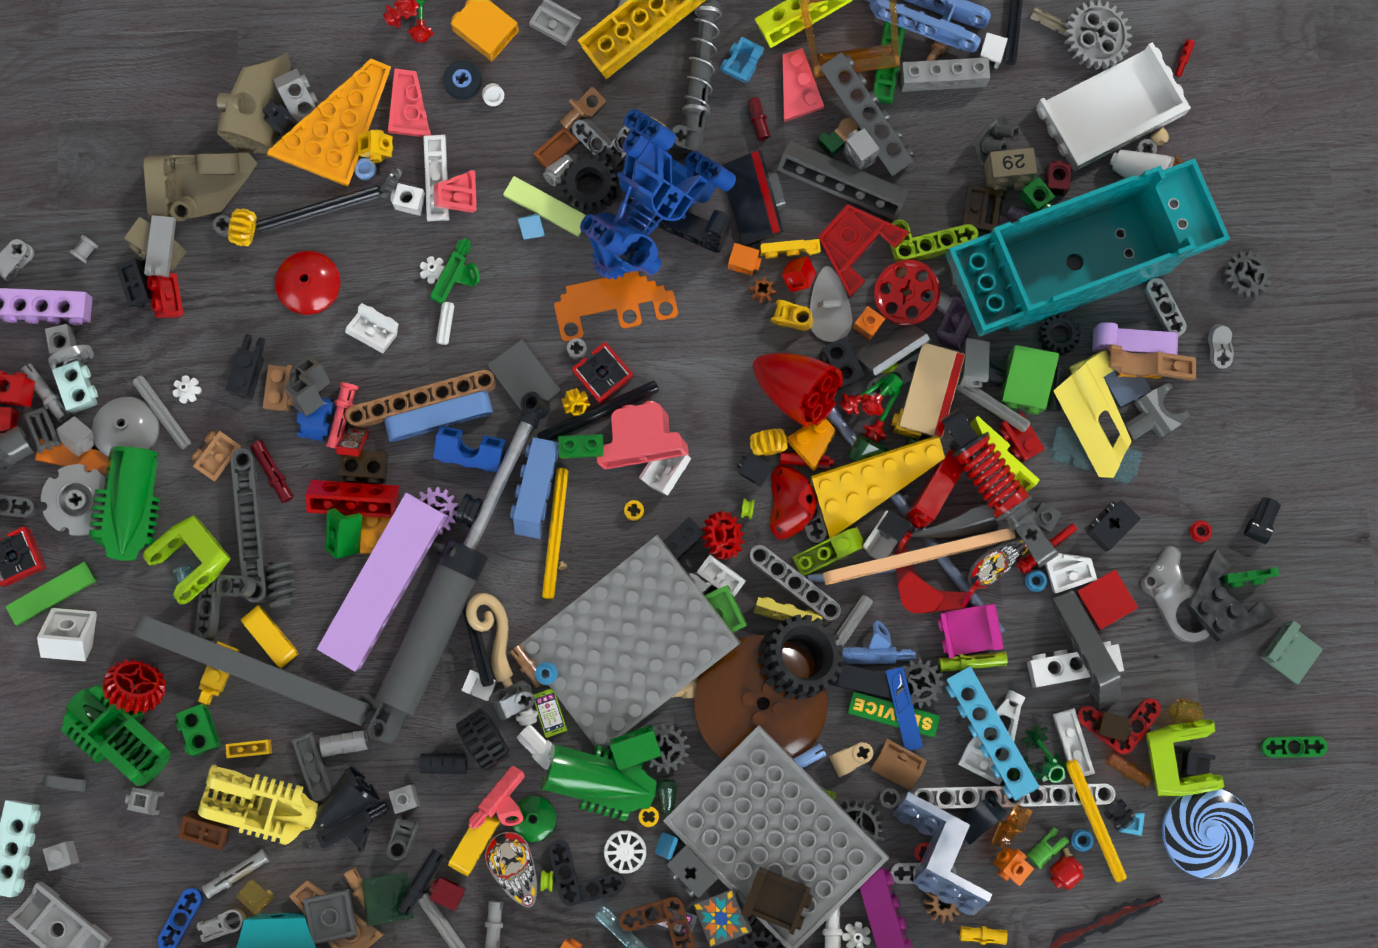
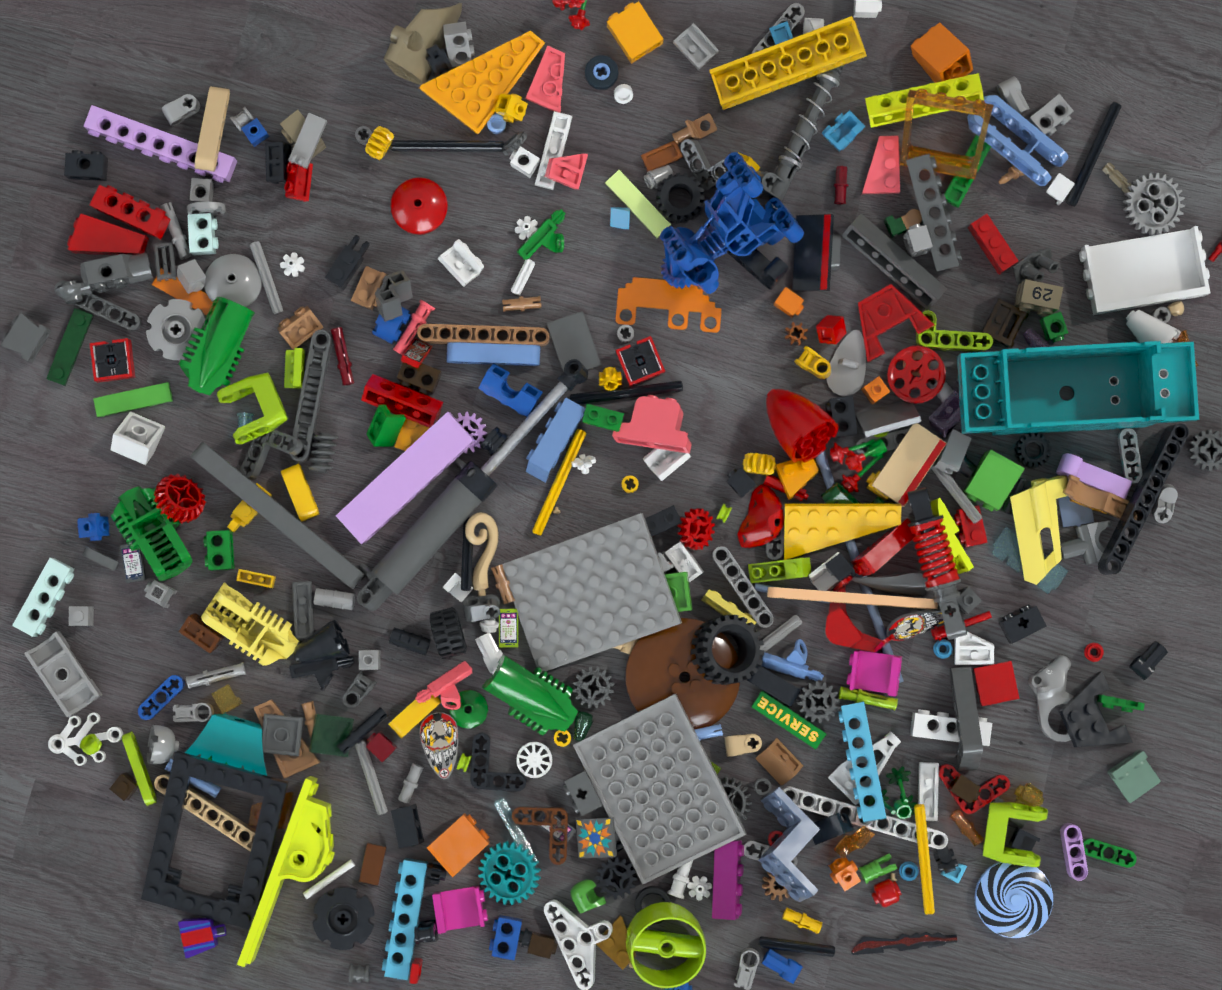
camera: 20 degrees right, 5 degrees up
(50, 748) = (93, 527): none -> blue brick
(52, 268) = (212, 128): none -> tan beam
(104, 778) = (132, 564): none -> tile
(108, 261) = (259, 136): none -> blue plate
(197, 181) = (351, 90): dark tan panel -> none
(222, 500) = (294, 368): none -> lime bracket
(453, 352) = (521, 303): none -> medium nougat pin
(553, 673) = (522, 595): dark azure plate -> none
(575, 503) = (583, 463): none -> white plant
(635, 747) = (569, 679): green panel -> none
(666, 845) = (569, 765): dark azure slope -> none
(777, 900) = (645, 838): dark brown panel -> none
(792, 248) = (832, 305): yellow hinge -> none
(904, 708) = (798, 718): blue sticker -> none
(942, 129) = (992, 244): none -> red brick
(944, 74) = (1011, 197): light grey brick -> none
(1055, 186) = (1071, 323): dark red brick -> none
(1190, 355) = (1150, 493): none -> black beam
(1265, 764) = (1078, 860): none -> lavender beam

